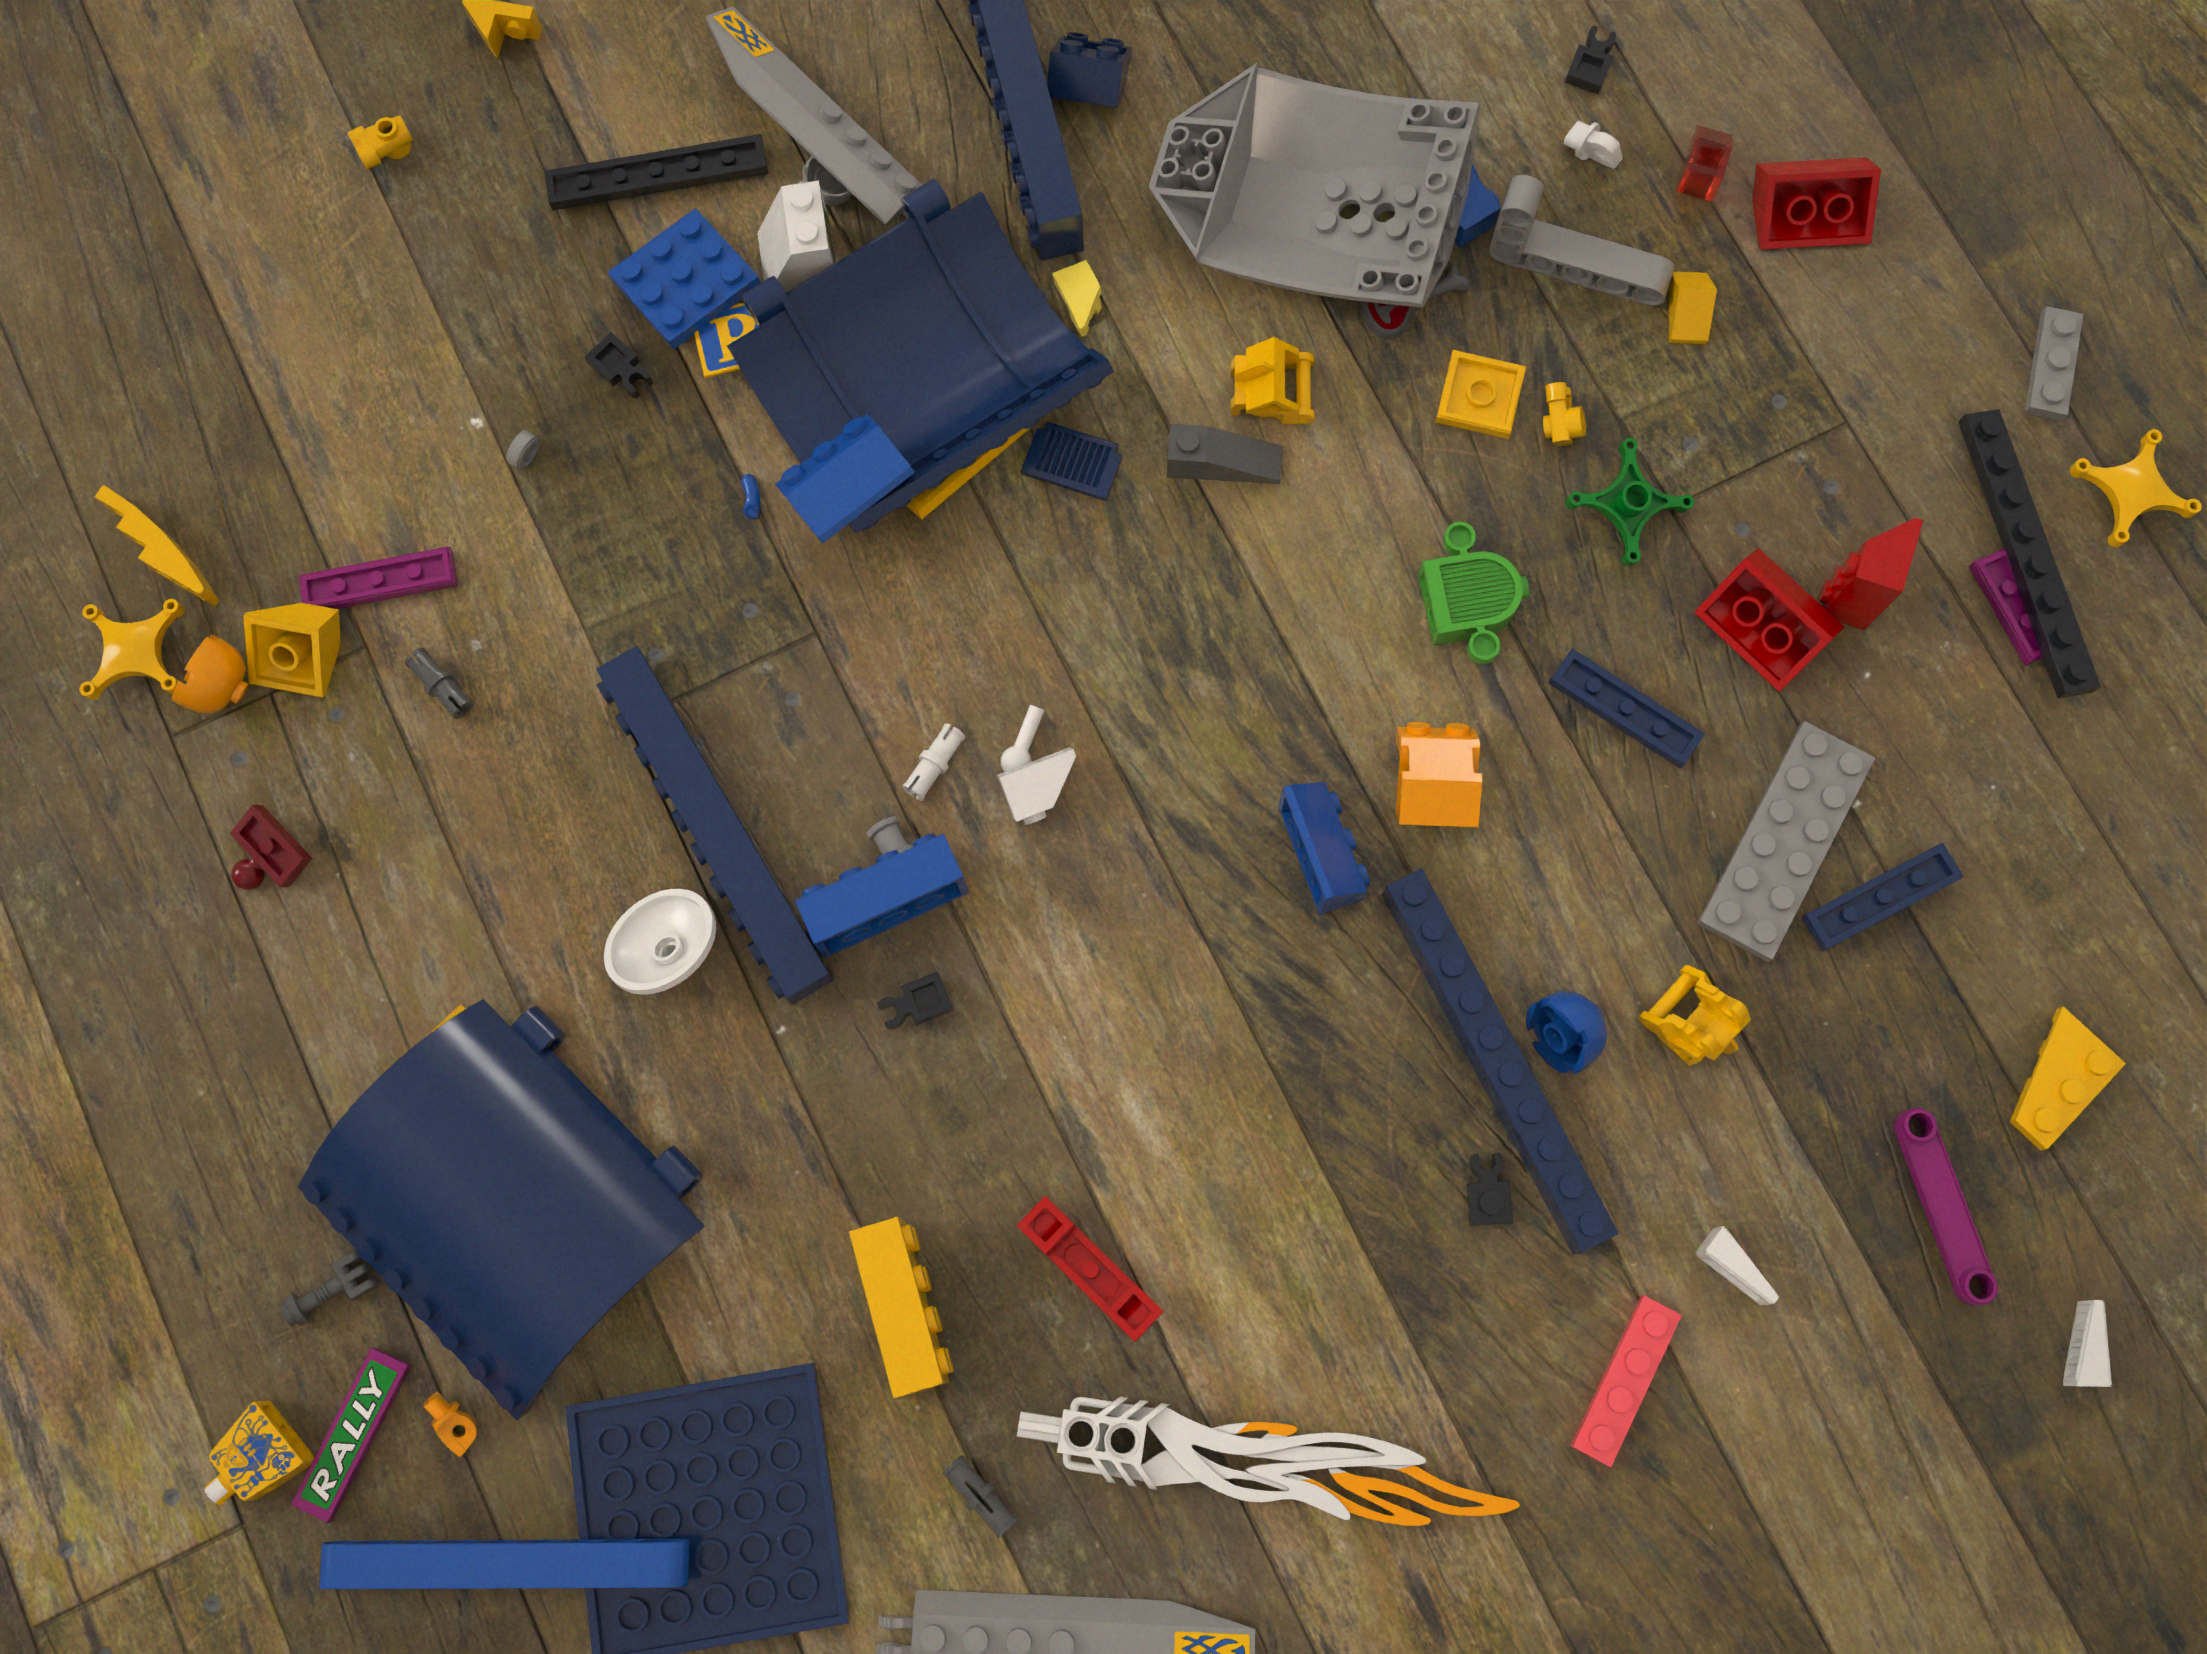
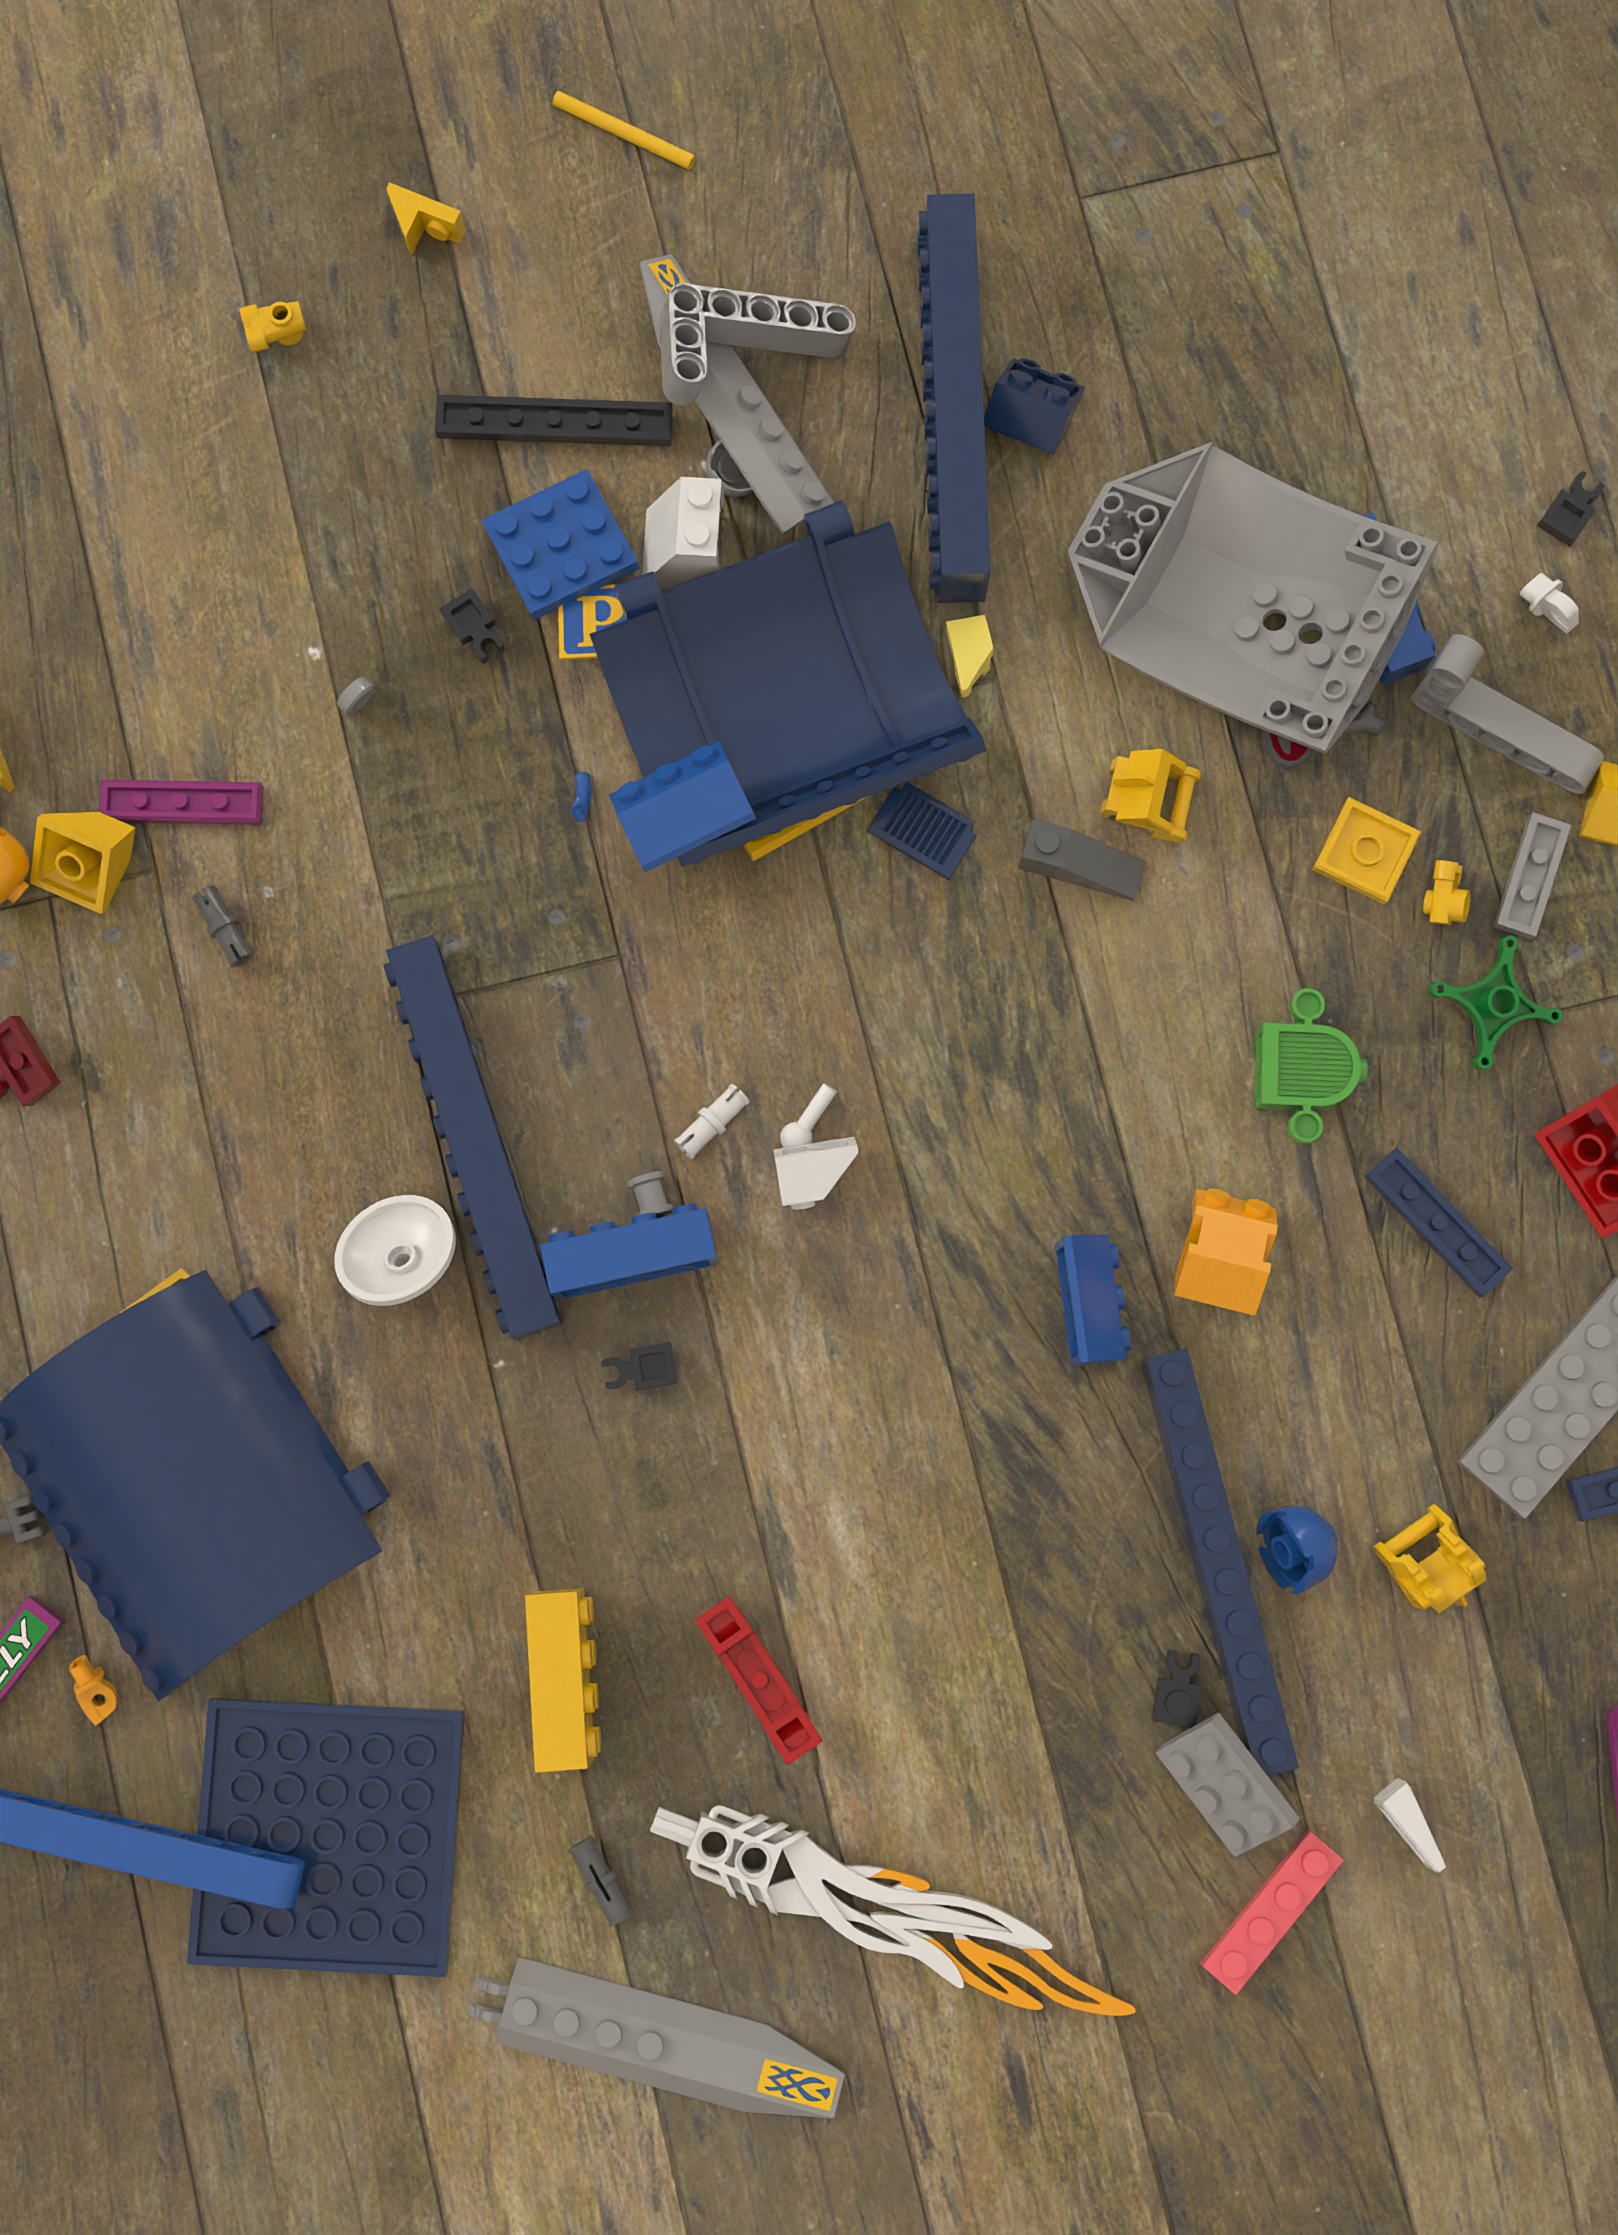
camera: 10 degrees right, 5 degrees up
(811, 45) = (744, 319): none -> light grey beam
(1555, 1267) = (1227, 1785): none -> light grey plate
(1635, 383) = (1532, 876): none -> light grey plate

